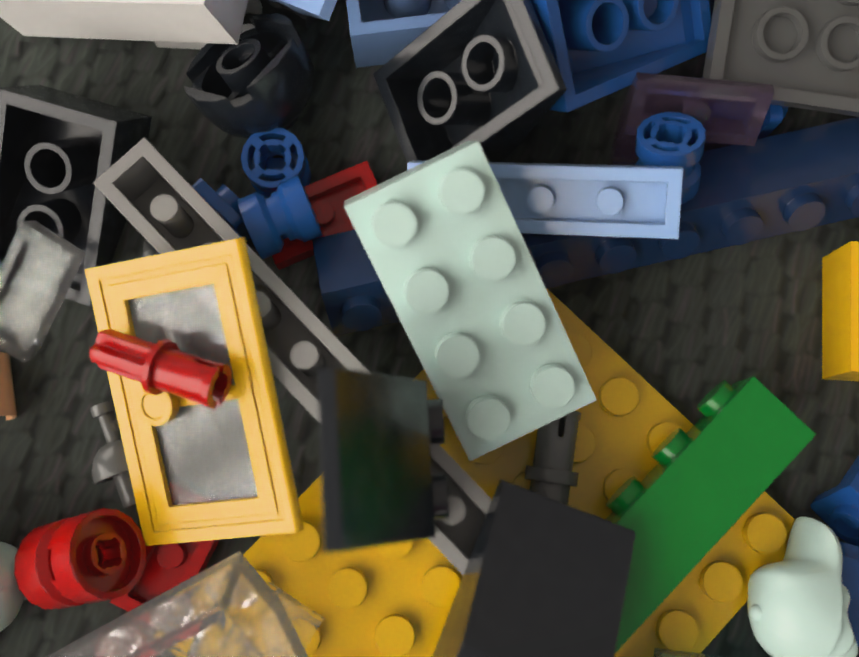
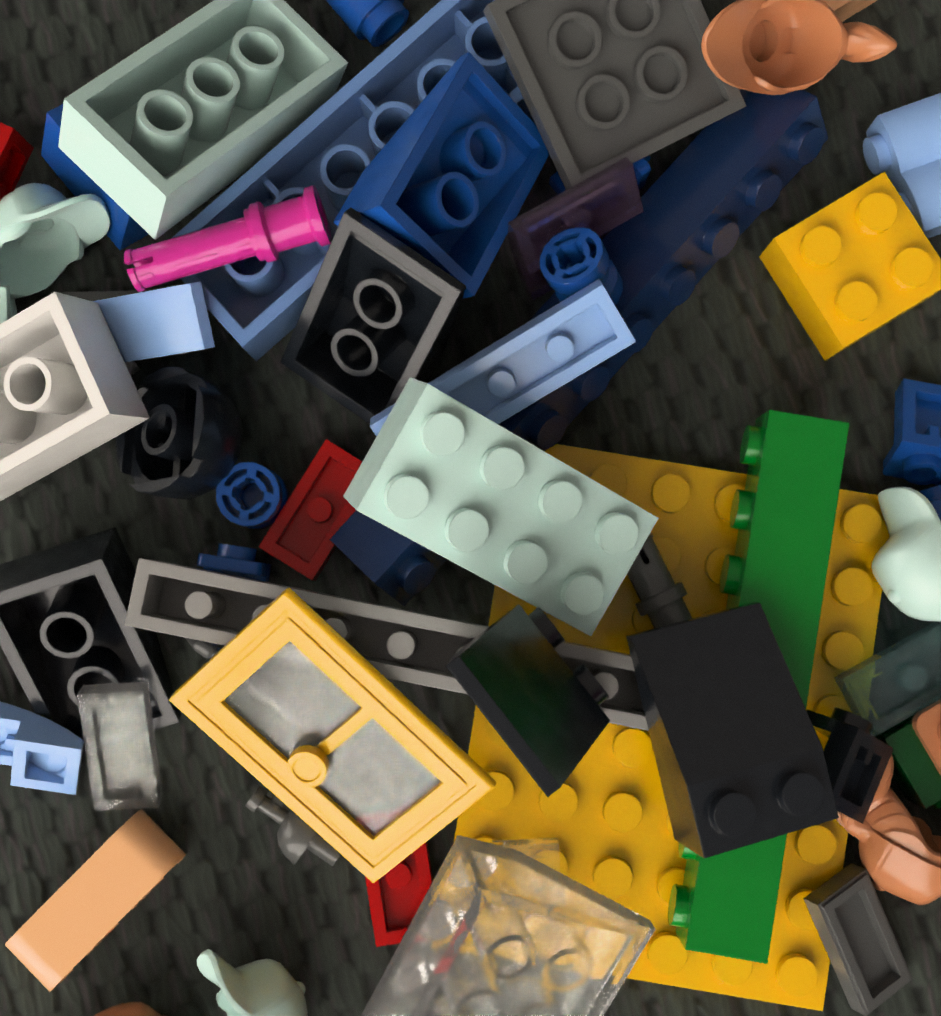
camera: 25 degrees left, 5 degrees up
(80, 559) = (330, 930): red wheel -> none
(162, 367) = (294, 736): red axle -> none
(279, 217) = (293, 537): blue wheel -> none

